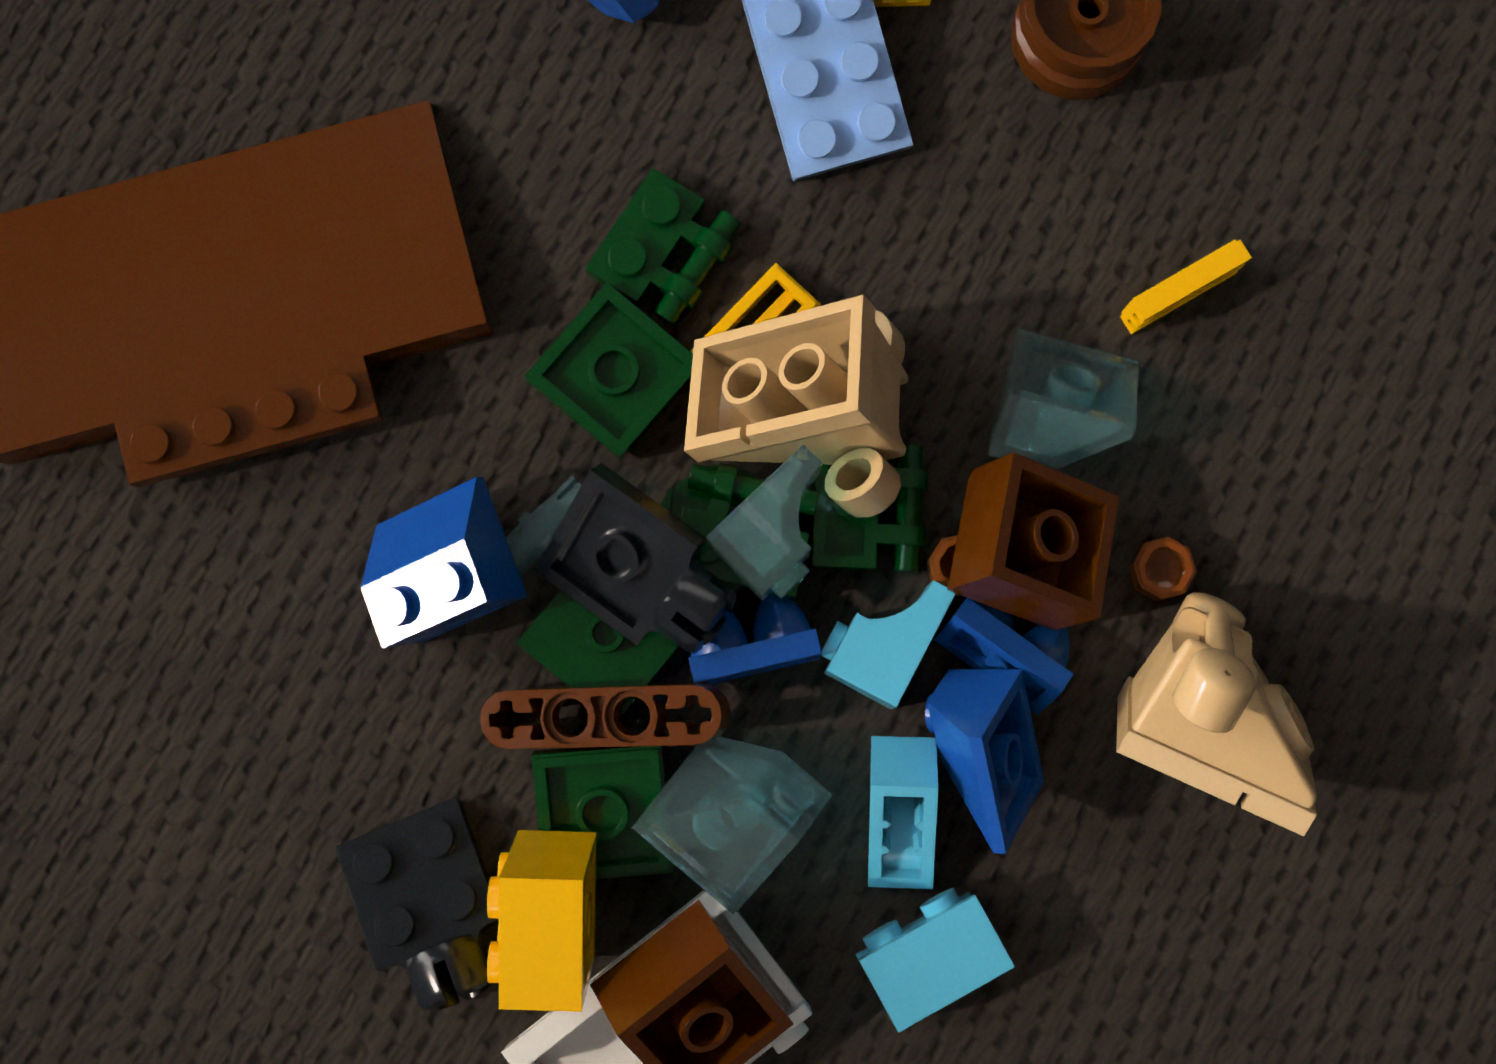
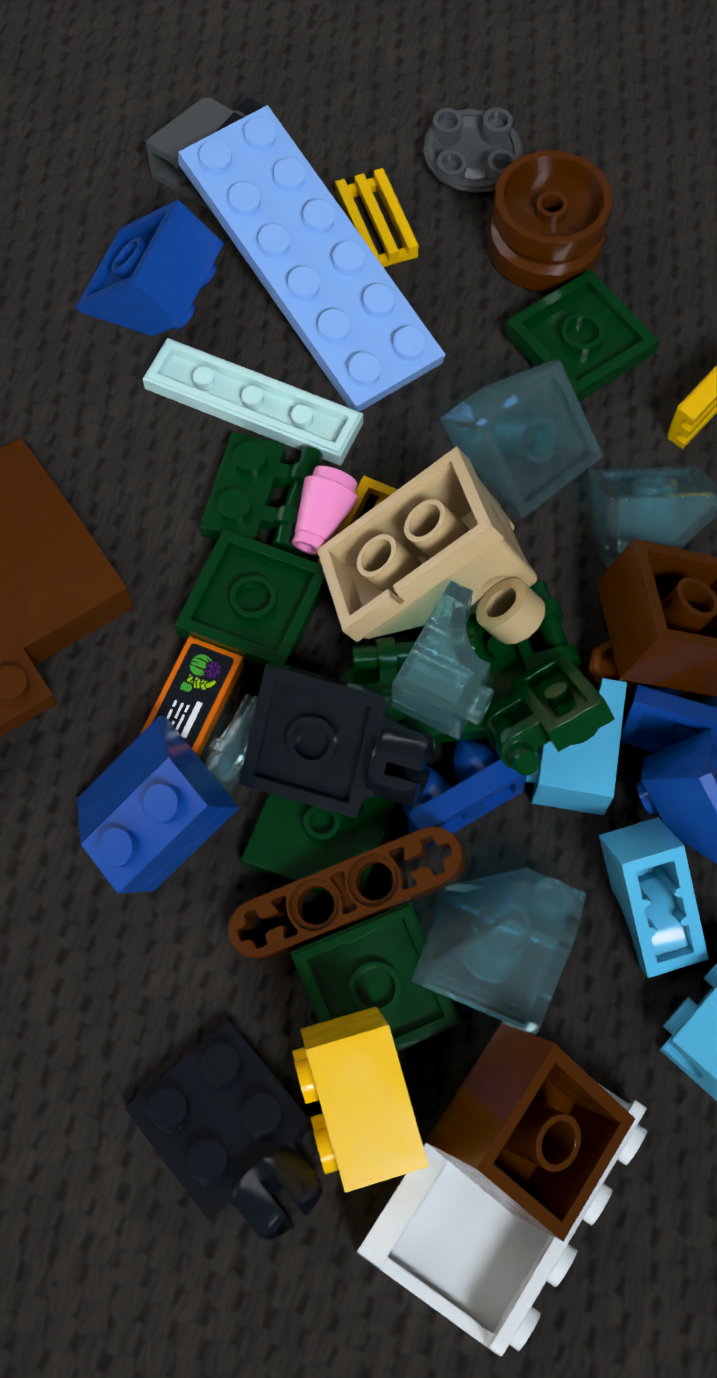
camera: 15 degrees left, 15 degrees down
(524, 454) = (197, 691): none -> tile
(688, 133) = (253, 400): none -> light aqua tile
(716, 294) = (323, 507): none -> bright pink cone
(873, 608) = (548, 706): none -> dark green plate
(960, 274) = (525, 436): none -> clear light blue slope
(1070, 169) = (584, 330): none -> dark green plate

